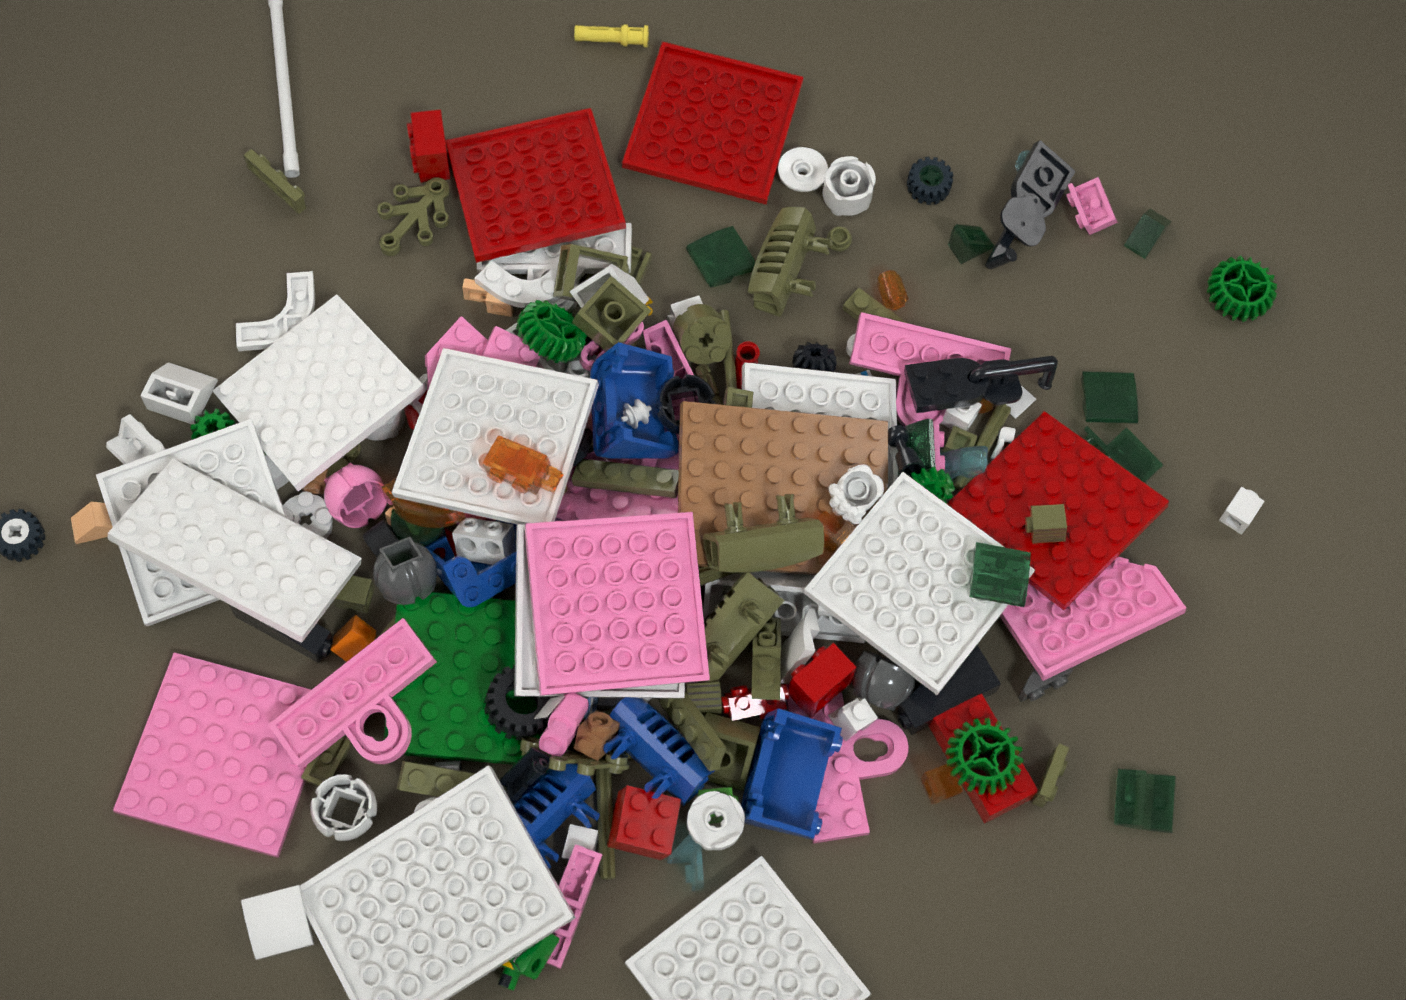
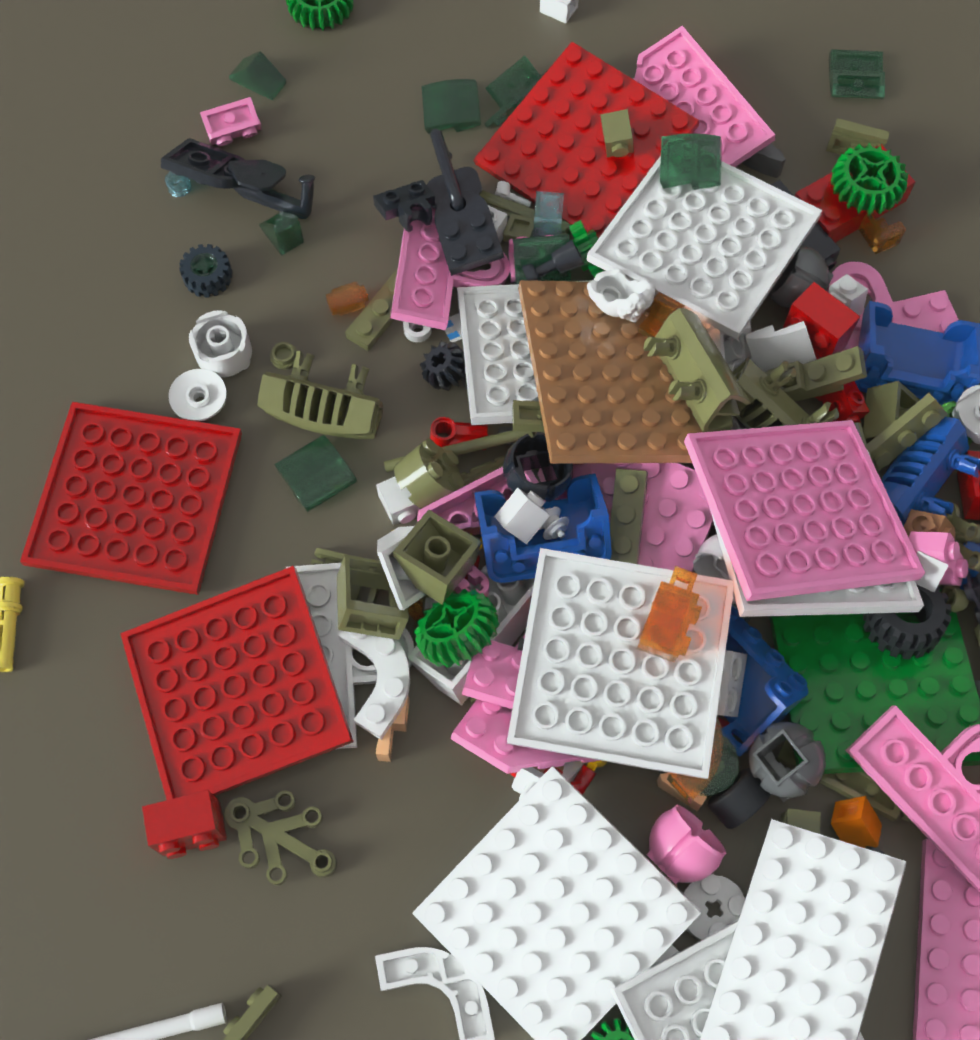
camera: 90 degrees left, 0 degrees up
(639, 384) = (522, 514): none -> white brick
(981, 336) = (408, 203): none -> black plate

